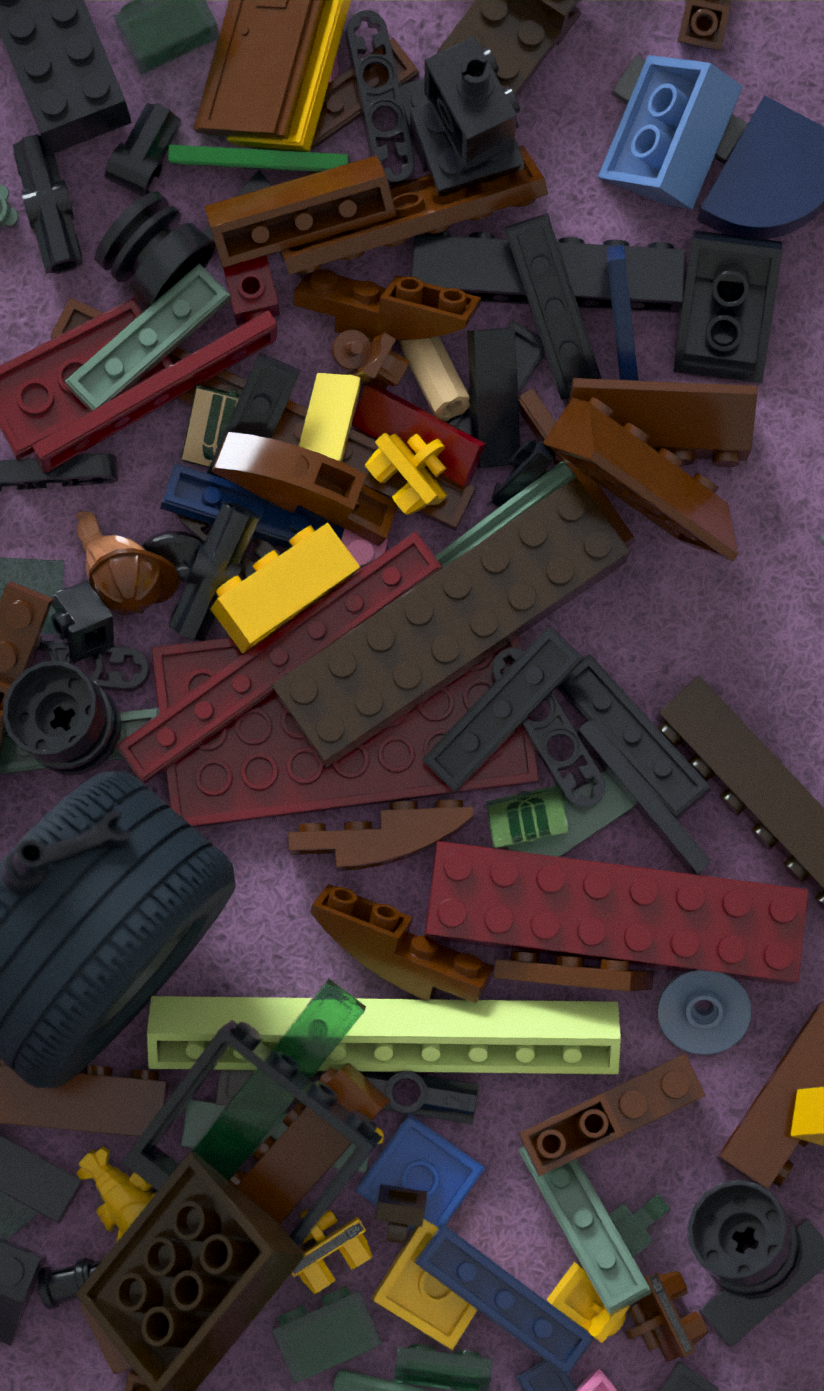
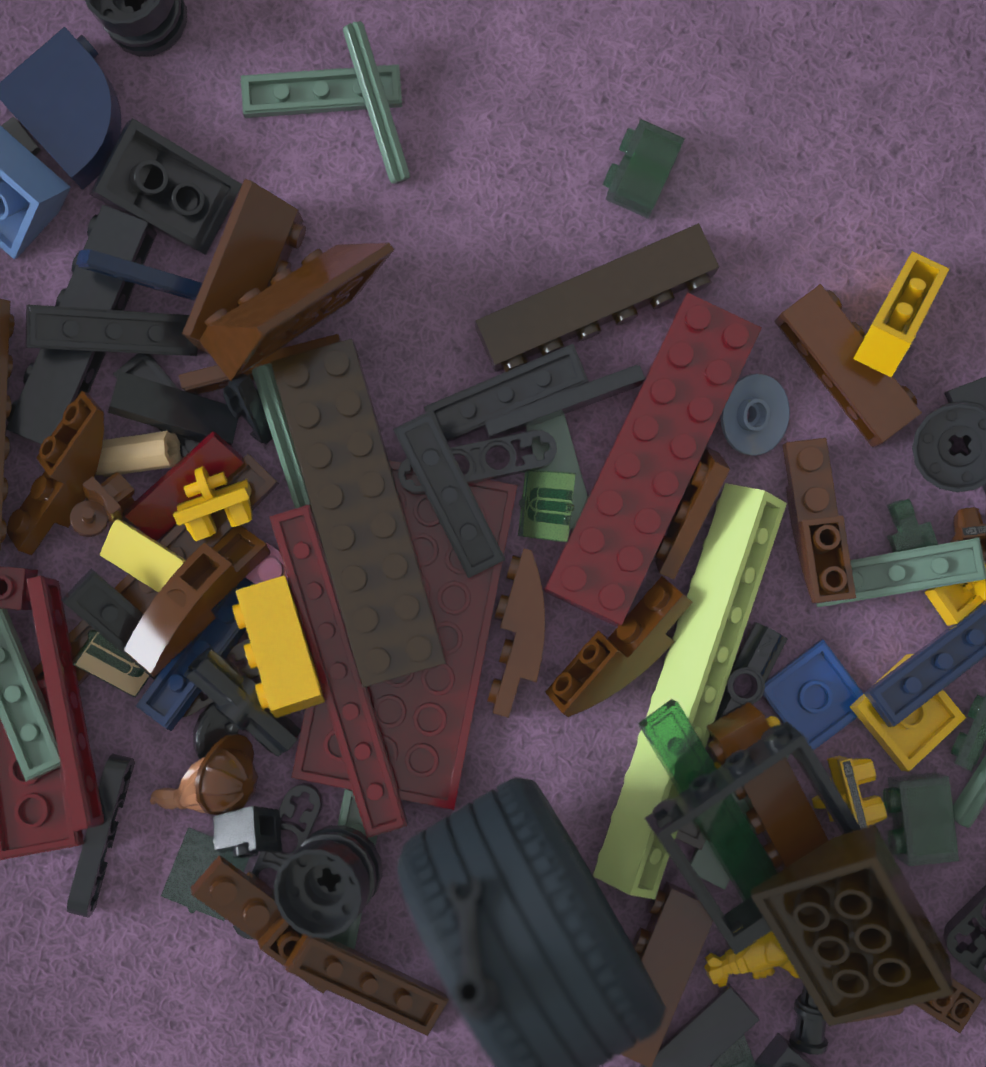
camera: 75 degrees left, 5 degrees up
(400, 1209) = (841, 723): dark brown tile -> none

